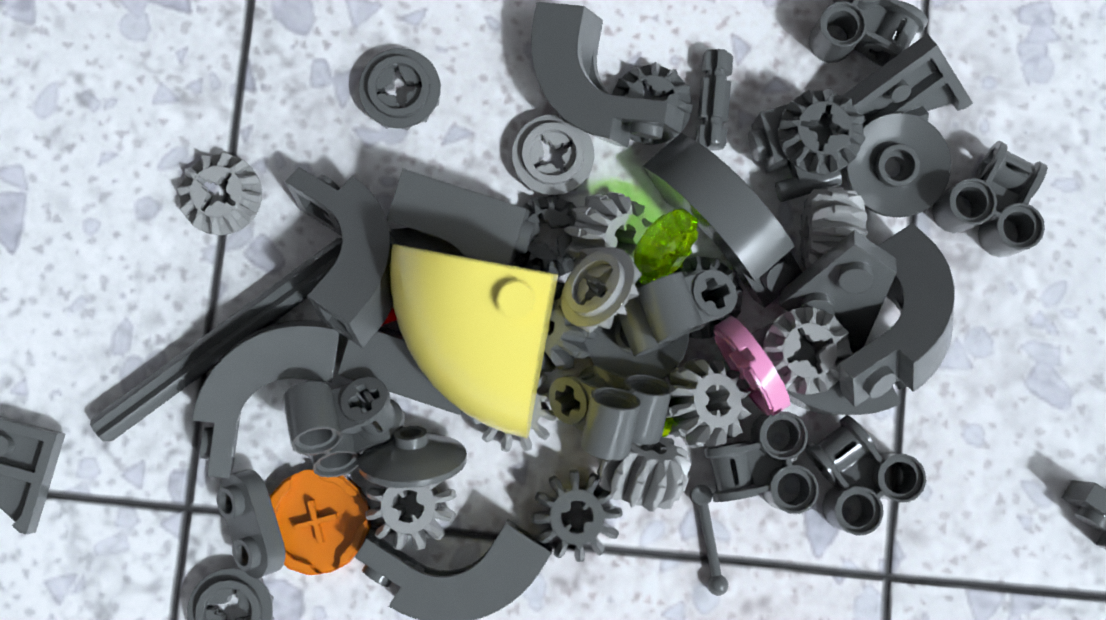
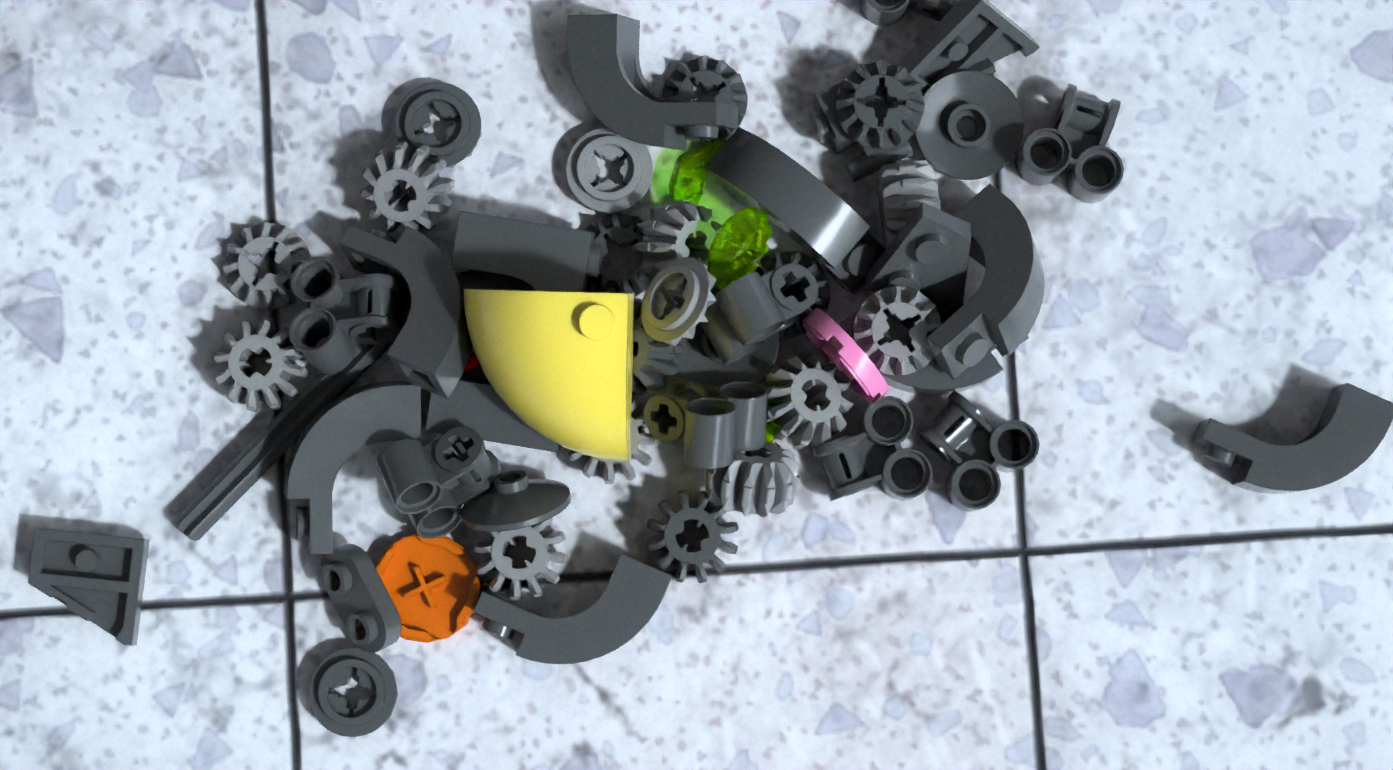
camera: 10 degrees left, 0 degrees up
(175, 286) = (239, 367): none -> light grey gear
(276, 248) = (349, 312): none -> dark grey piece
(372, 128) = (417, 171): none -> light grey gear
(628, 170) = (689, 172): none -> clear neon green arm
(702, 496) = (818, 500): dark grey hinge -> none
(714, 99) = (769, 85): dark grey axle -> none

